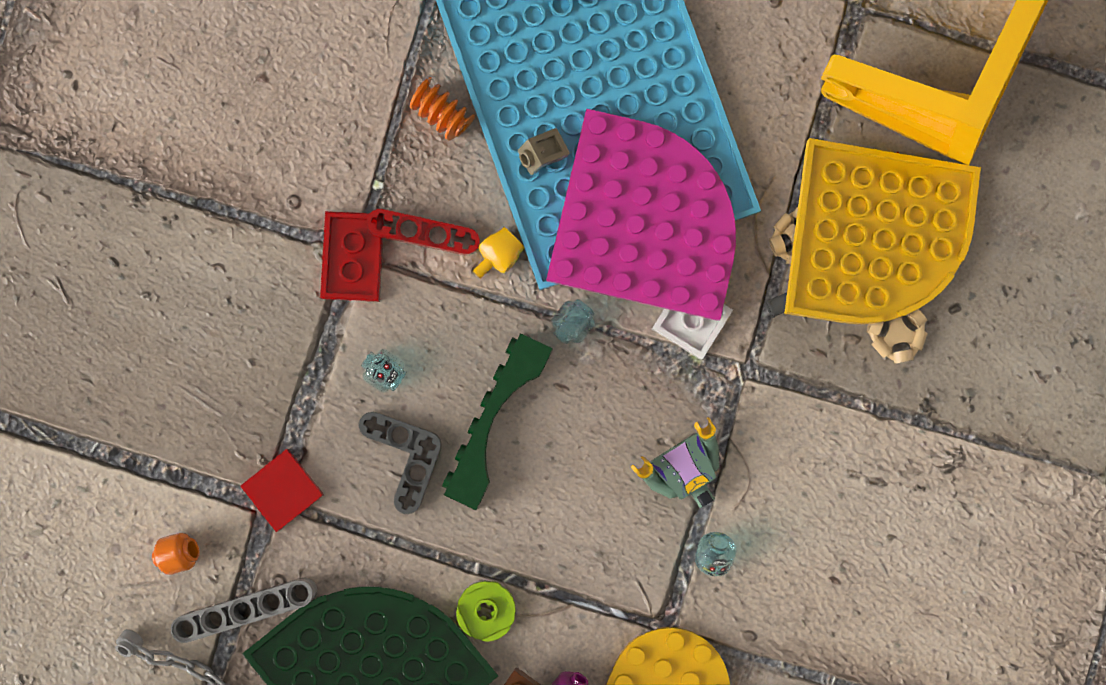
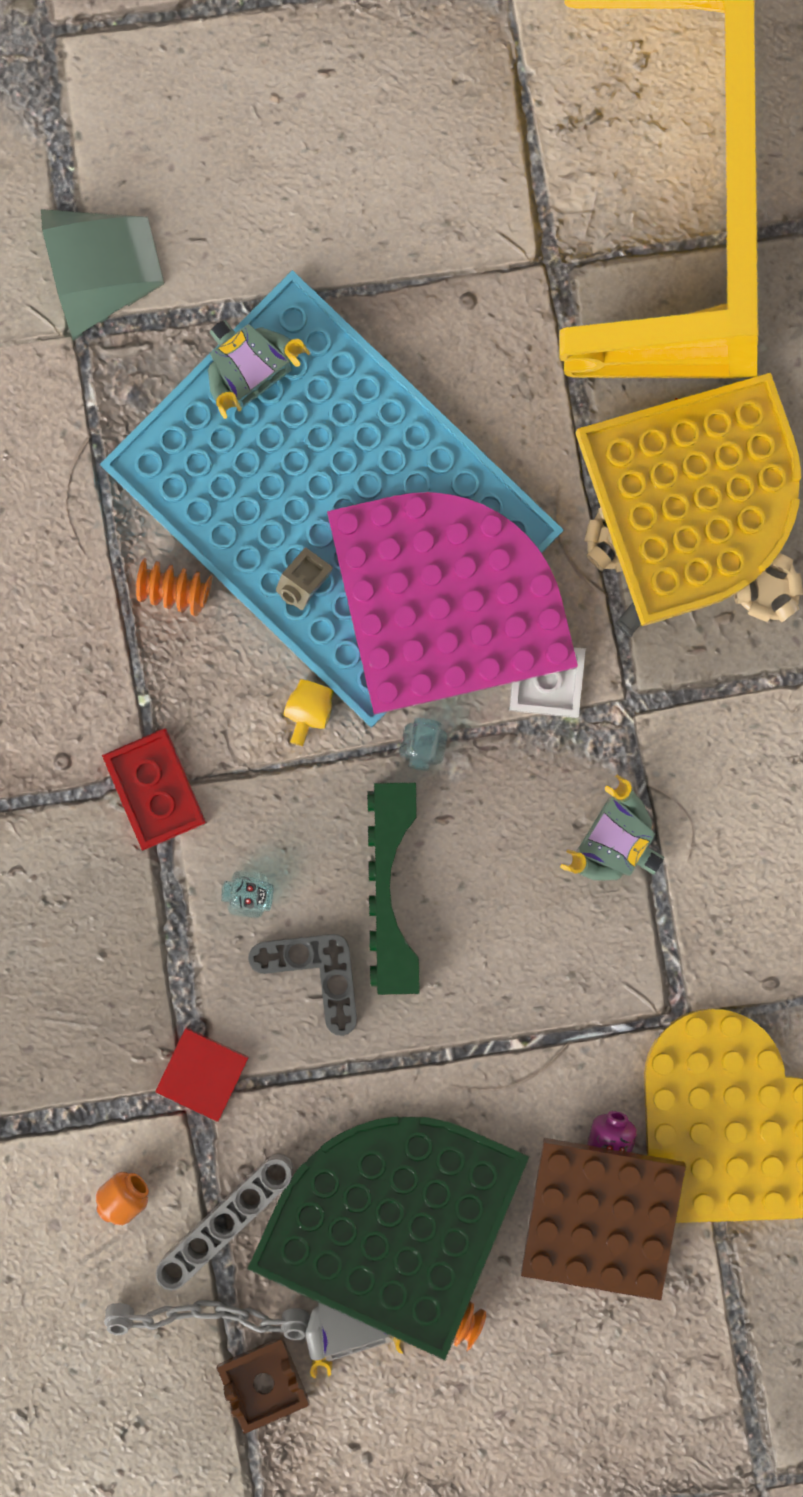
camera: 35 degrees left, 0 degrees up
(424, 227) = (219, 732): red beam -> none
(479, 626) = (482, 1114): lime plate -> none
(715, 554) = (693, 914): clear light blue head -> none

